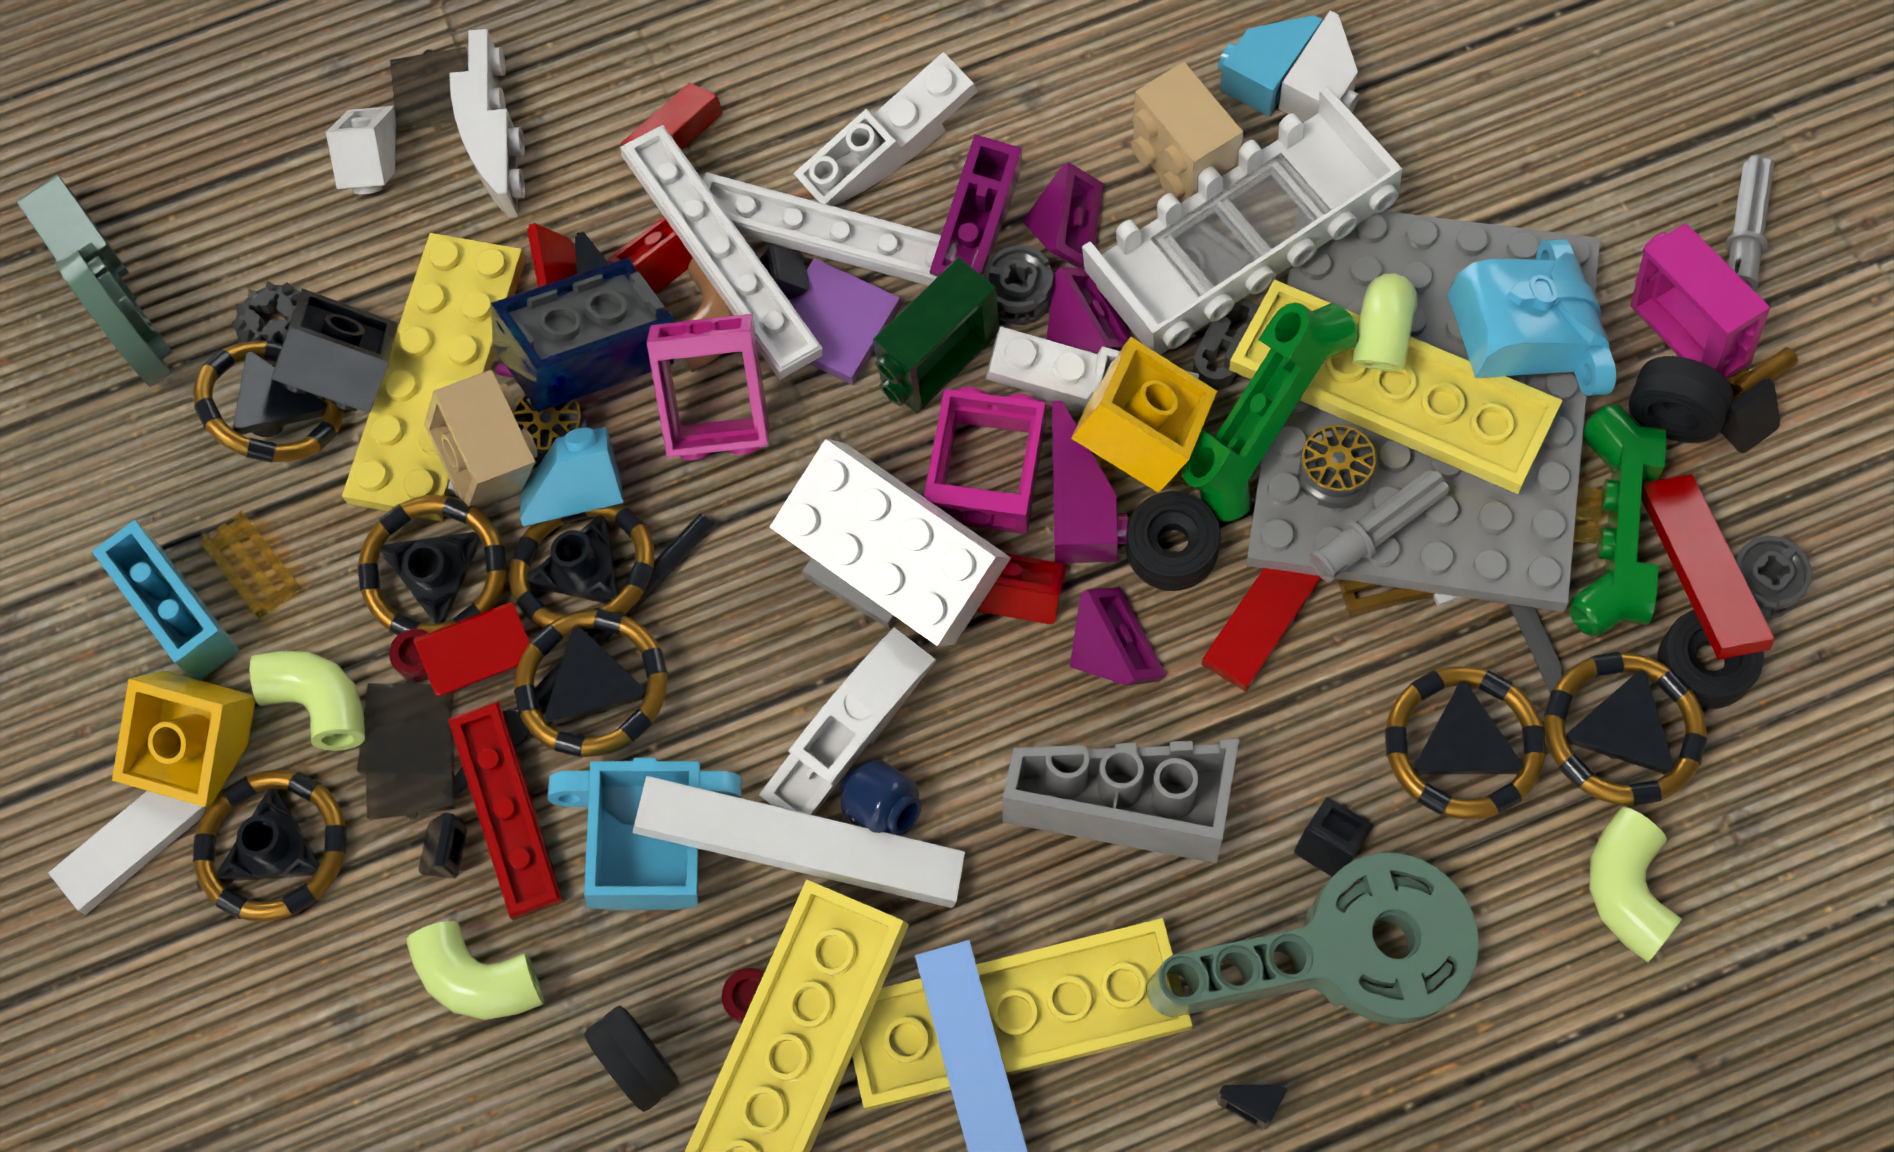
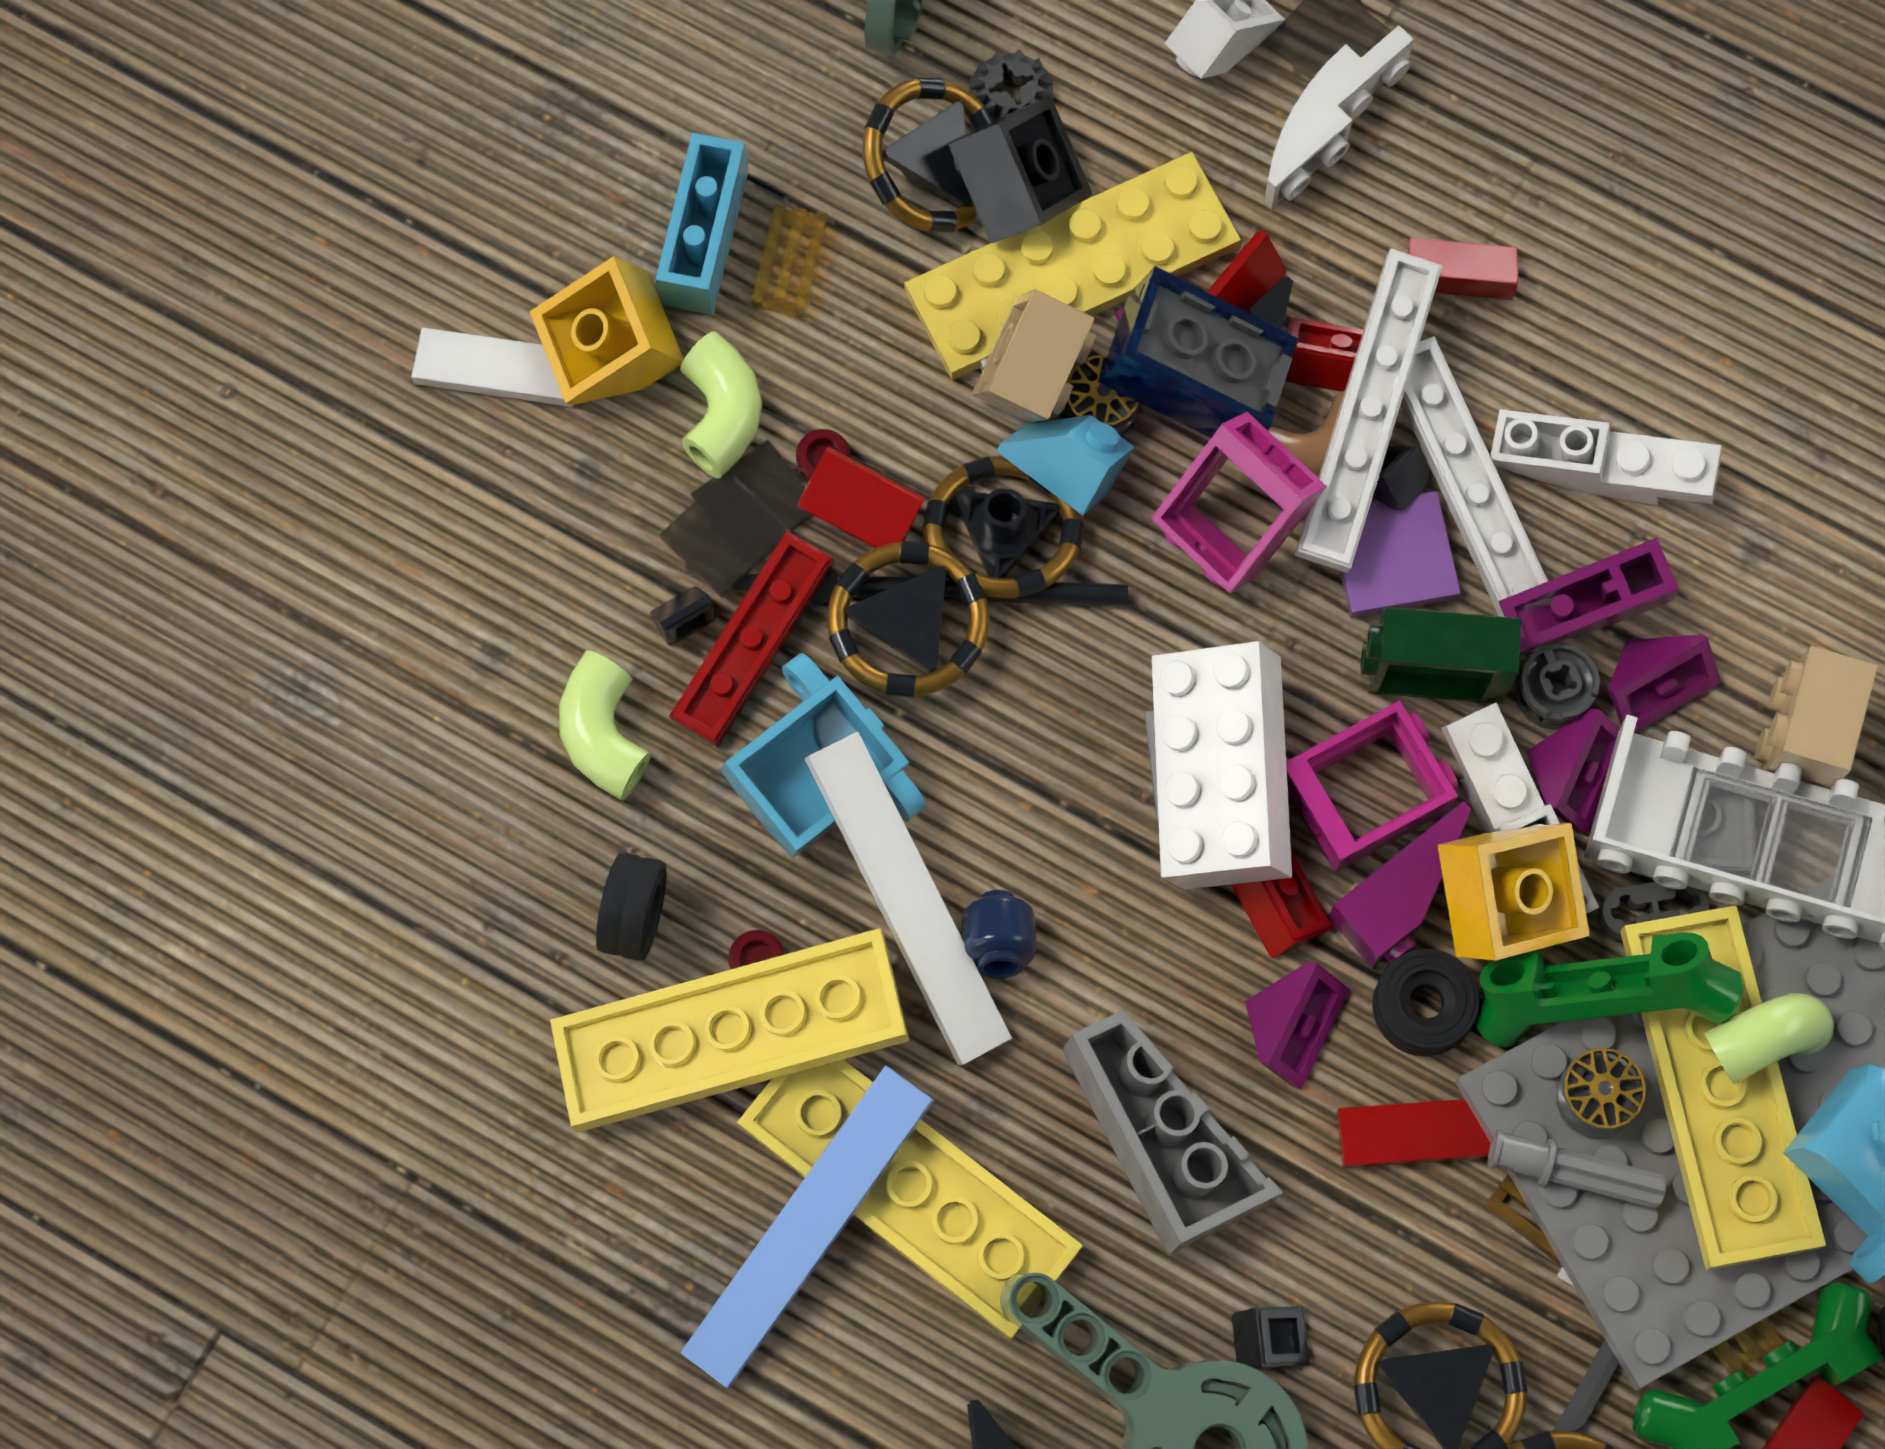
camera: 45 degrees right, 5 degrees up
(269, 845) = (578, 478): black piece -> none
(431, 566) = (904, 406): black piece -> none
(848, 724) = (1041, 857): white slope -> none

